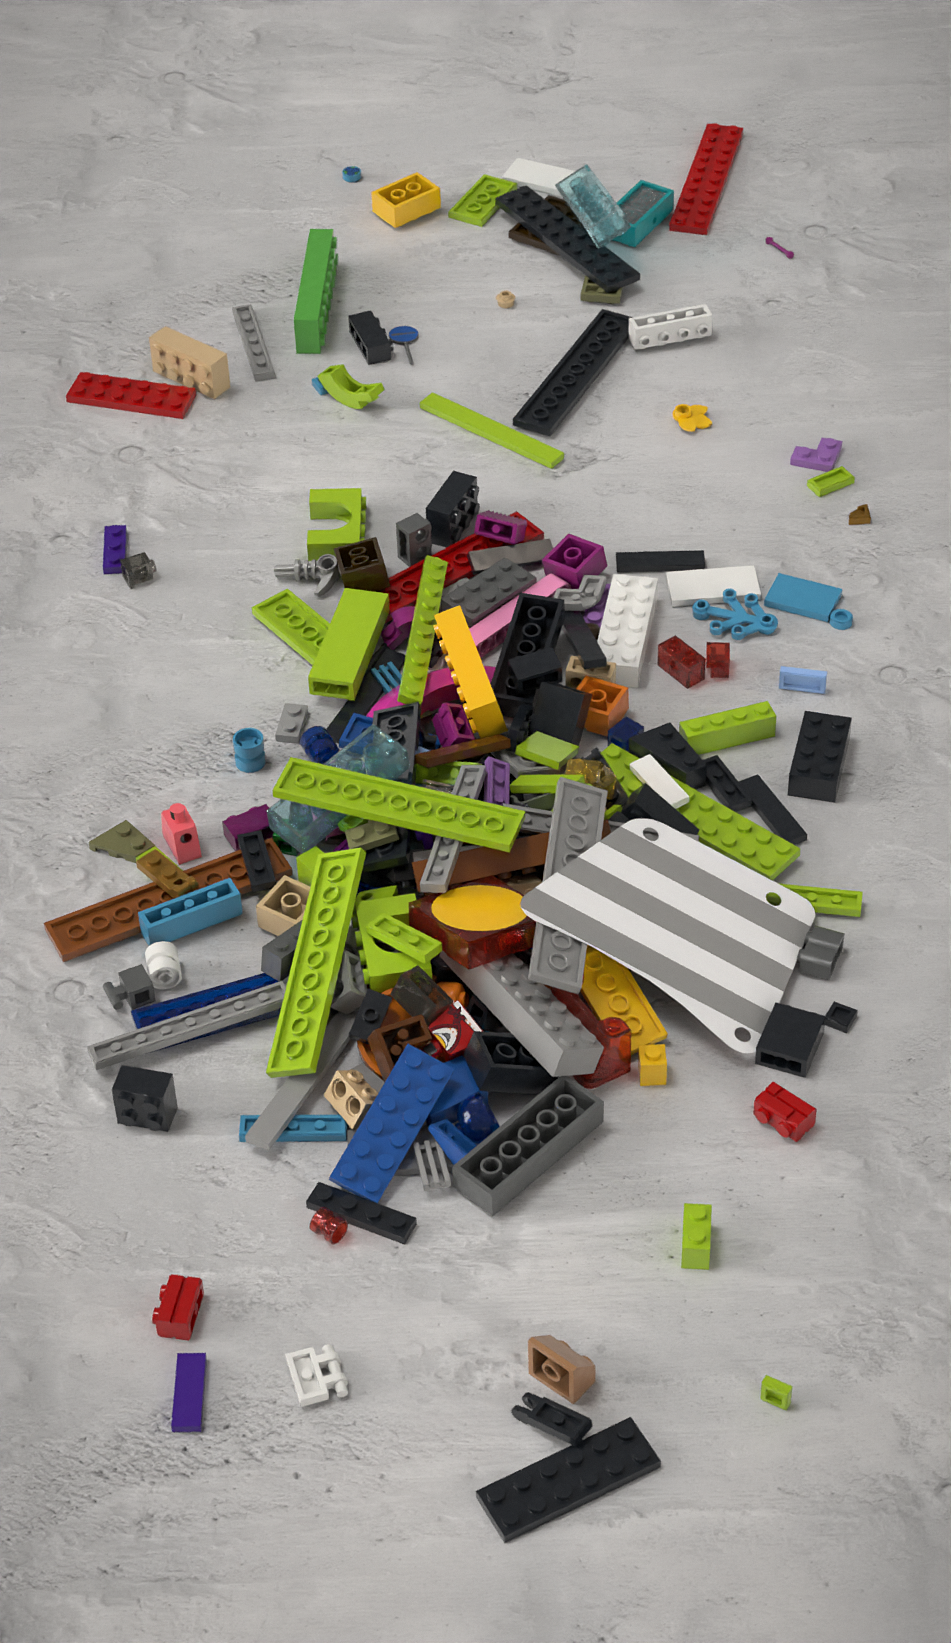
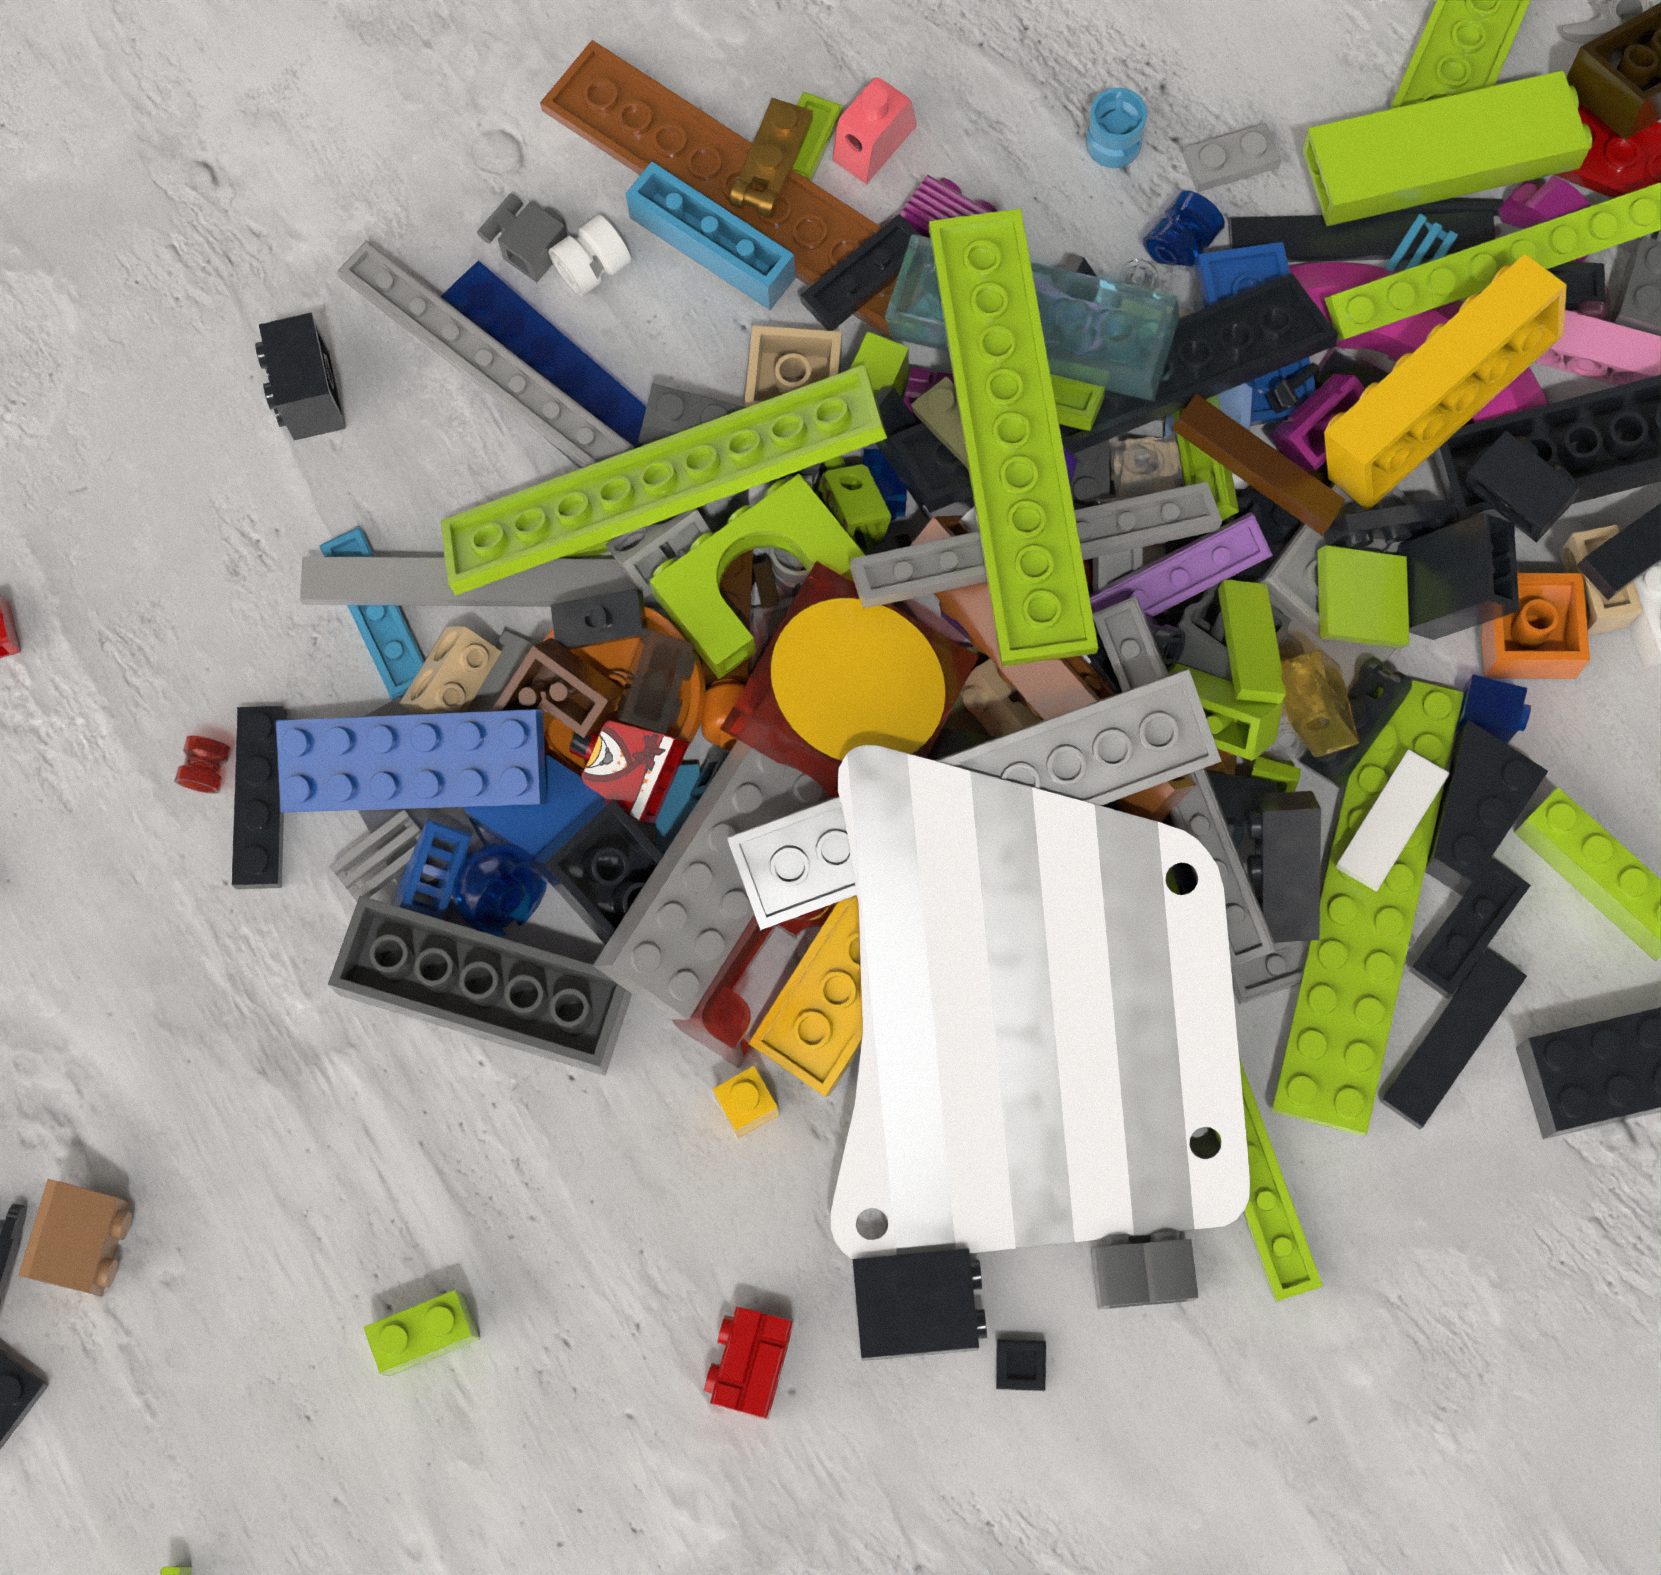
camera: 65 degrees right, 30 degrees up
(122, 842) = (830, 54): olive wing -> none
(404, 938) = (744, 592): lime plate -> none

